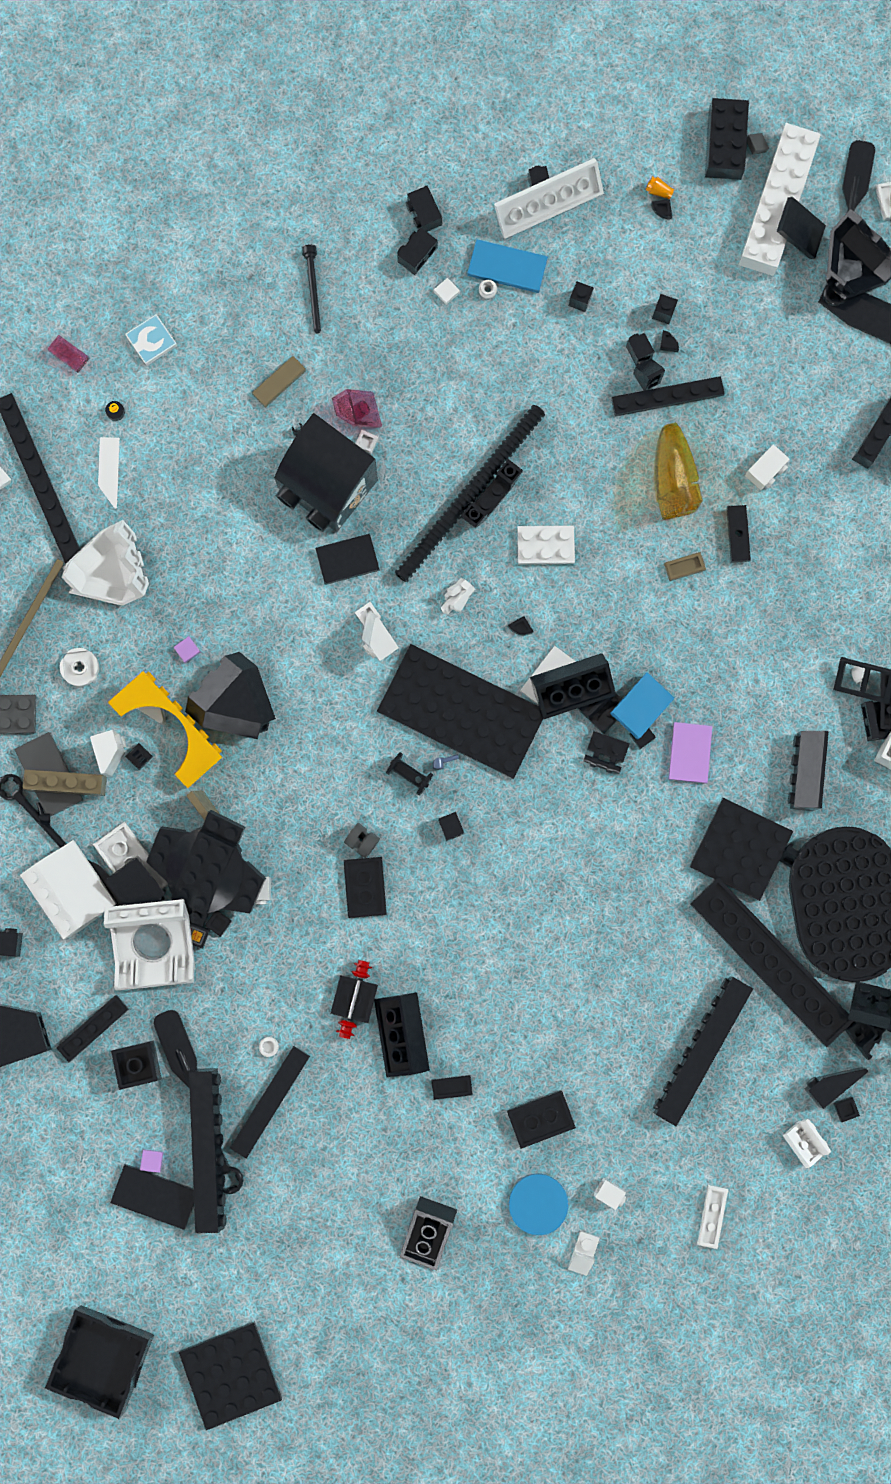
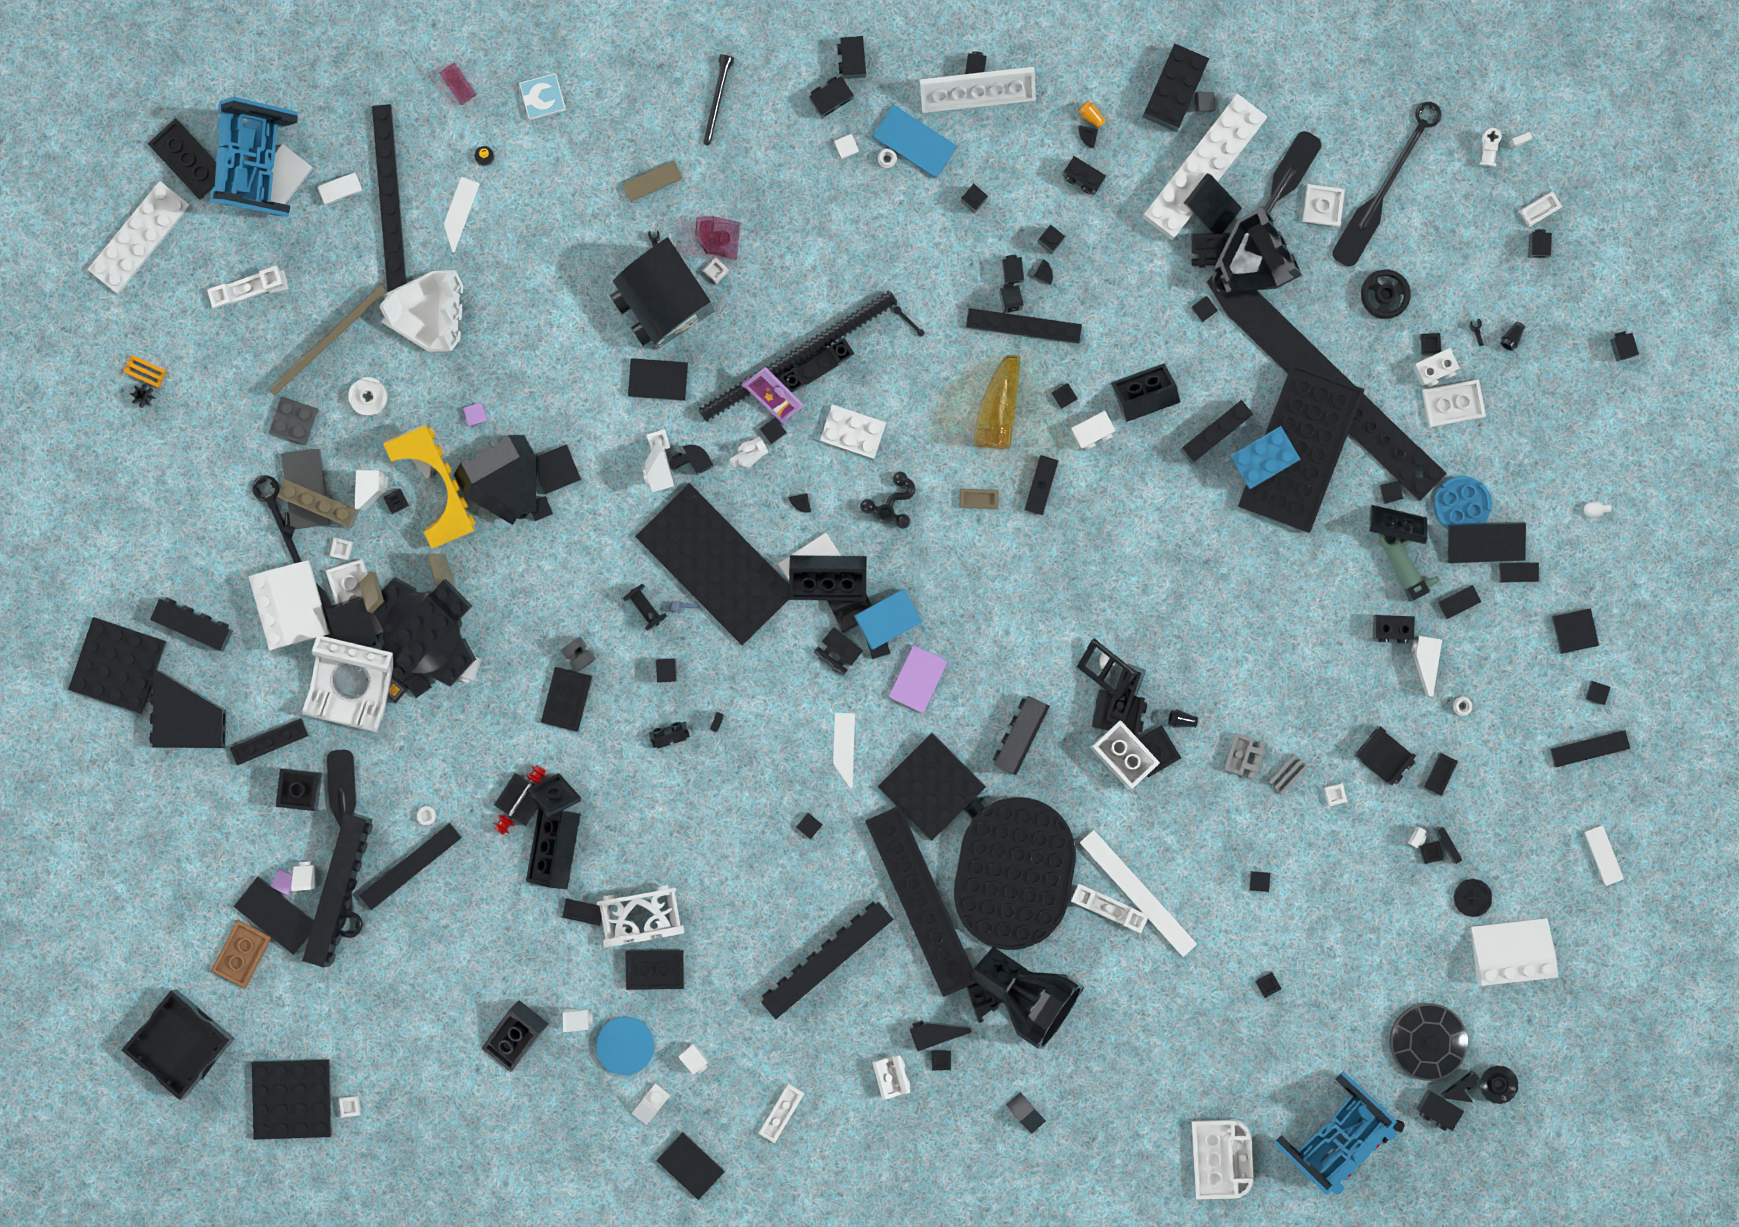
camera: 20 degrees right, 5 degrees up
(101, 819) = (341, 549): none -> white tile
(133, 1247) = (241, 954): none -> medium nougat tile
(143, 848) = (371, 592): none -> dark tan tile
(170, 1149) = (304, 877): none -> white slope
(281, 674) = (556, 469): none -> black tile
(281, 716) = (543, 509): none -> black tile
(290, 1362) = (349, 1106): none -> white tile
(385, 983) = (553, 795): none -> black tile
(407, 616) = (696, 455): none -> black brick
(461, 537) = (765, 390): none -> door
(467, 891) = (660, 736): none -> black hinge
(471, 569) = (773, 430): none -> black tile
(483, 1195) = (577, 1019): none -> white slope
(516, 858) = (717, 721): none -> black tile
(536, 1078) = (621, 936): none -> white fence
(546, 421) = (920, 332): none -> black hinge
(622, 609) = (902, 520): none -> black piece
(638, 927) = (809, 825): none -> black tile
(643, 839) = (844, 745): none -> white sticker
(643, 1301) = (690, 1165): none -> black tile
(673, 243) = (1084, 176): none -> black brick
(728, 446) = (1064, 396): none -> black tile
(803, 417) = (1146, 392): none -> black slope
(810, 264) = (1207, 243): none -> black plate
(826, 325) = (1204, 309): none -> black tile

